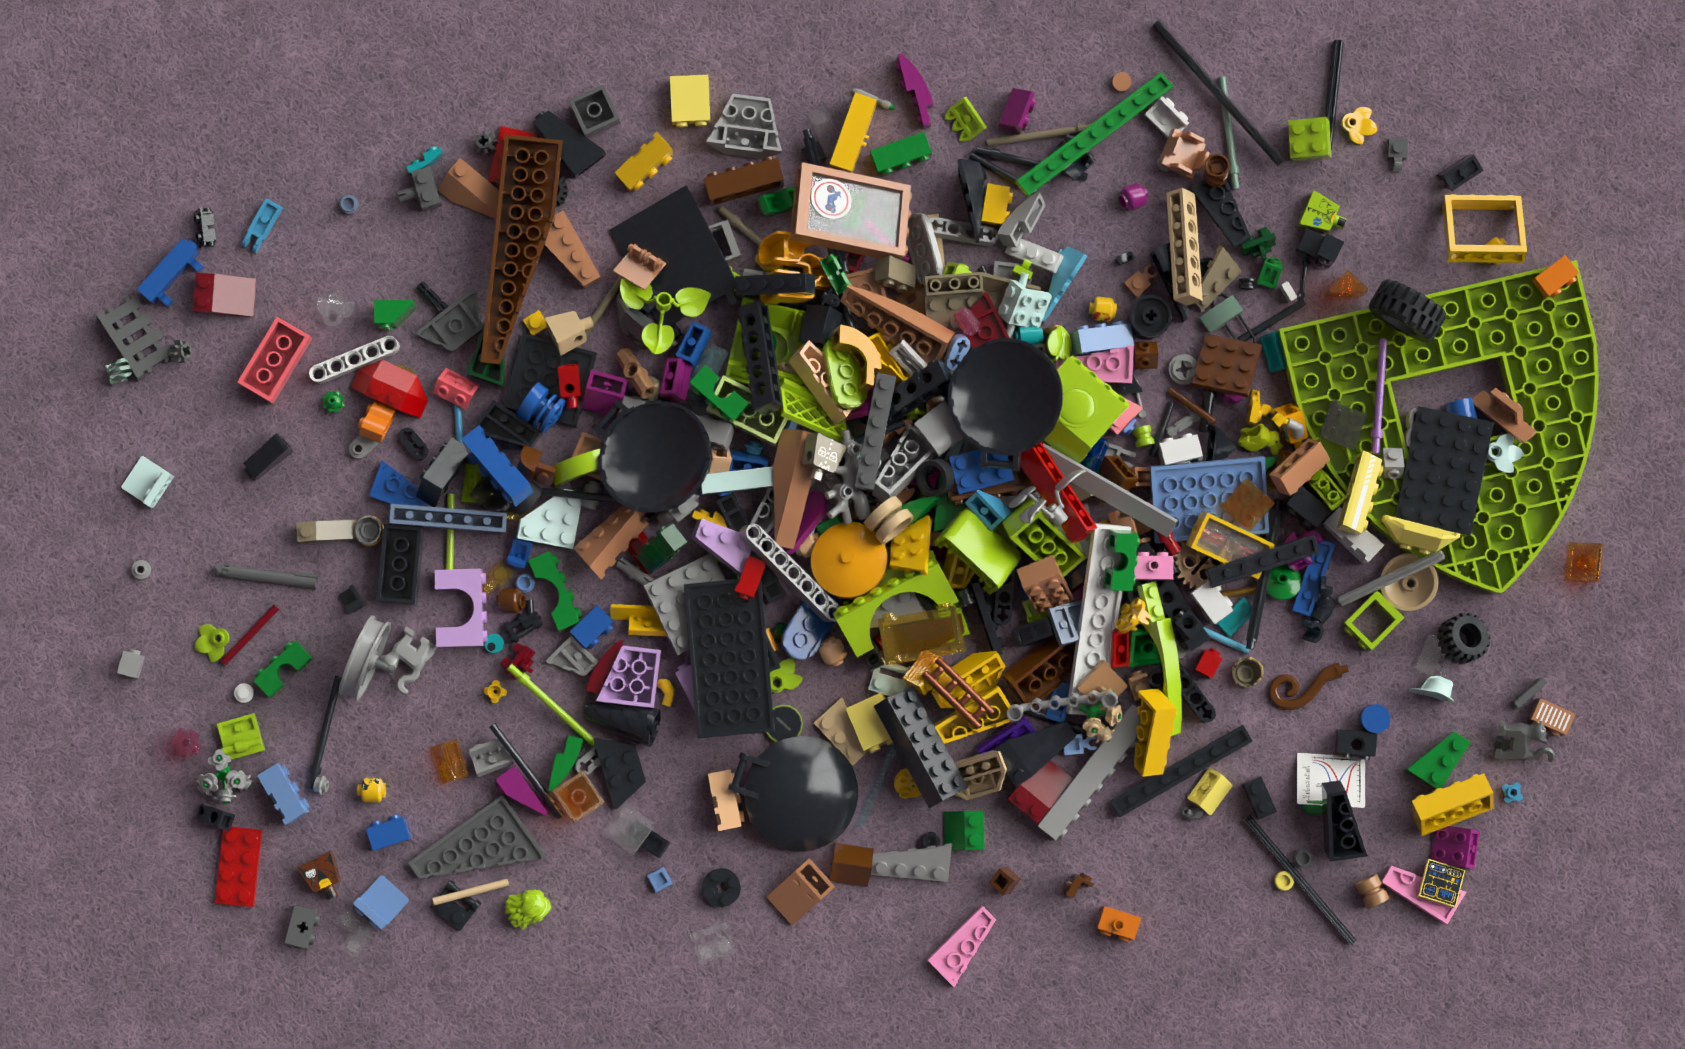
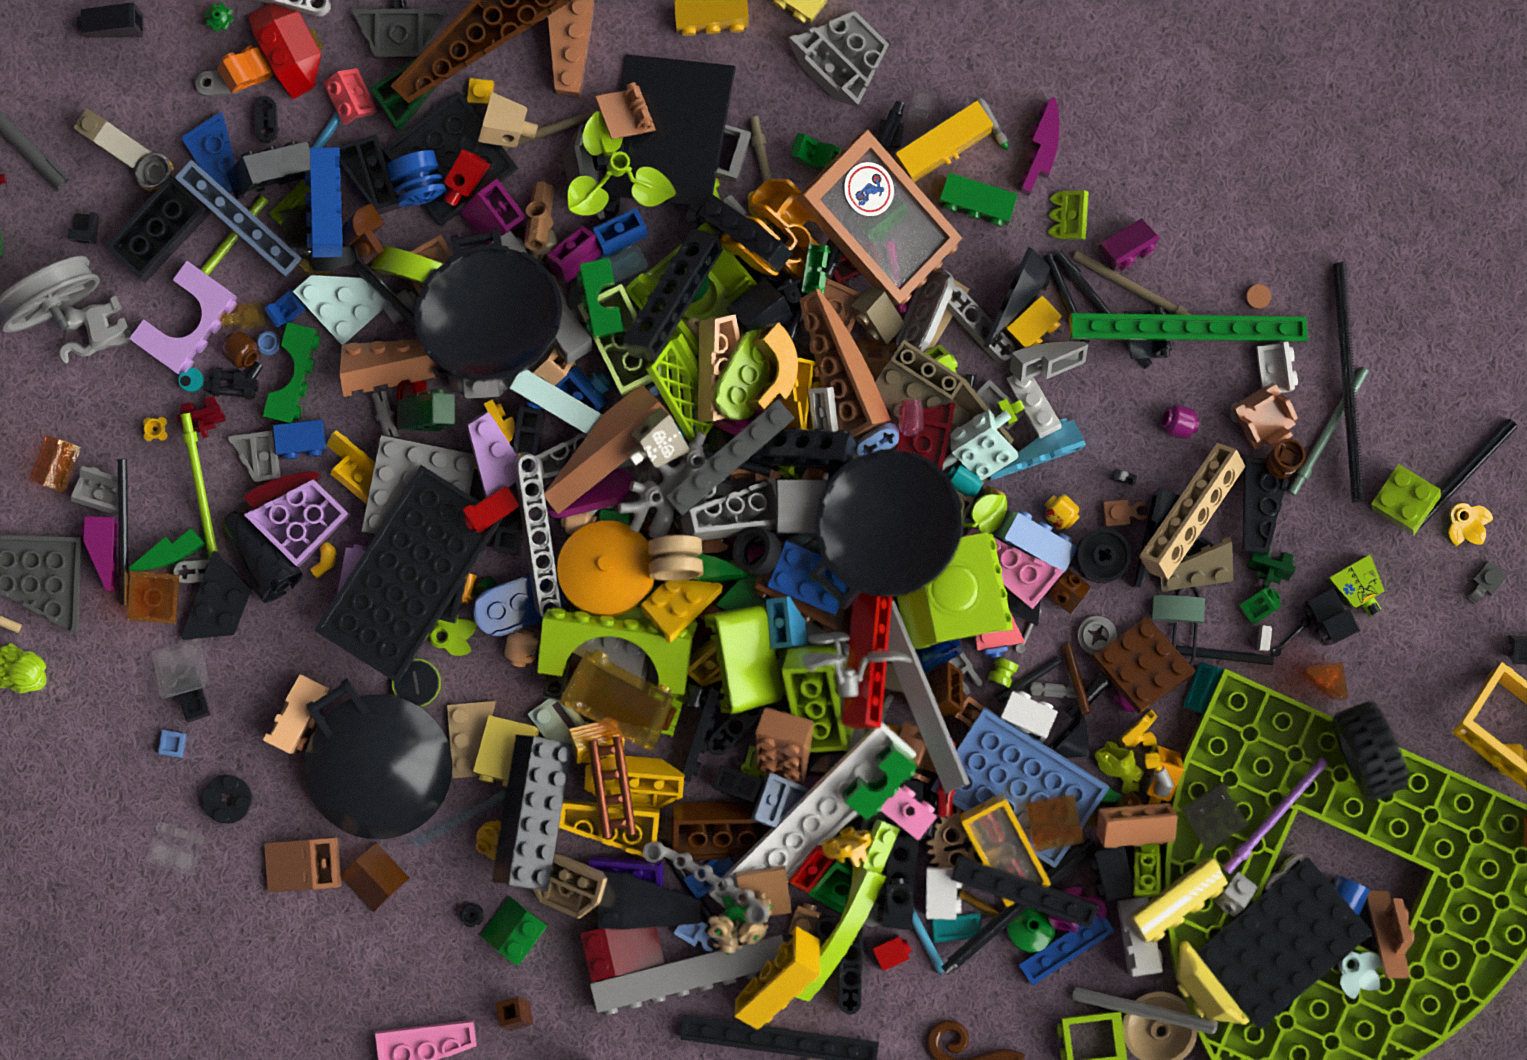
camera: 45 degrees right, 0 degrees up
(744, 181) = (797, 106): reddish brown brick -> none
(922, 864) = (444, 931): light grey wing -> none
(1247, 283) = (1229, 598): black bush -> none
(1247, 672) = (924, 992): dark tan hair -> none
(1320, 614) = (1045, 991): black piece -> none

